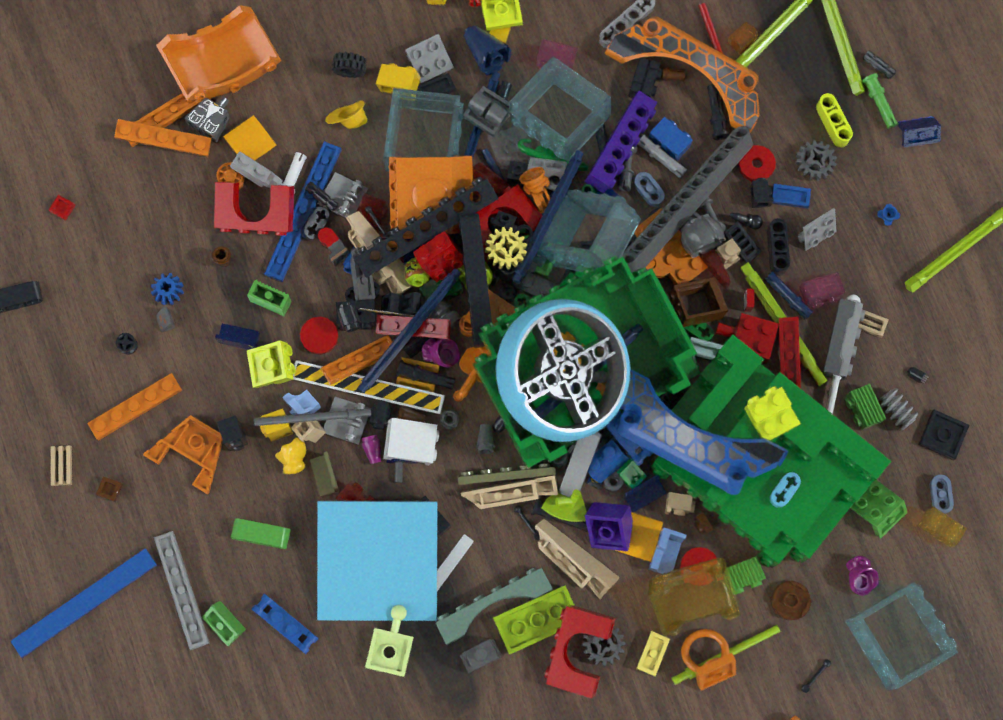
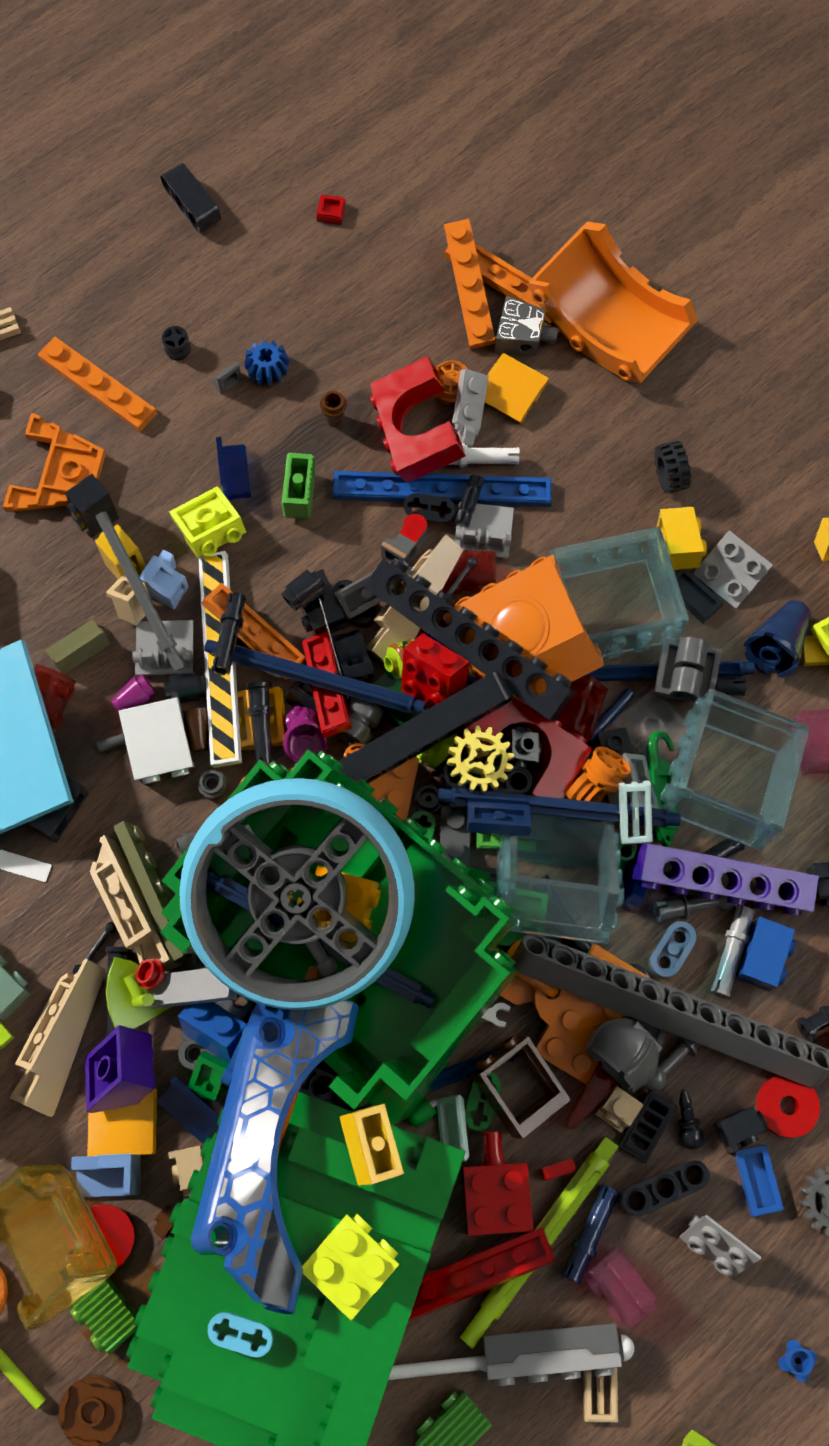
camera: 70 degrees right, 5 degrees down
(292, 456) = (85, 594): yellow hair -> none
(319, 335) = (271, 569): red tile -> none
(349, 116) = (599, 495): yellow piece -> none
(354, 368) = (230, 622): none -> black pin
(544, 250) = (498, 815): none -> dark blue plate
(556, 168) = (634, 787): none -> light aqua tile
(560, 487) = (150, 973): none -> red plate
(714, 379) = (371, 1145): none -> yellow brick

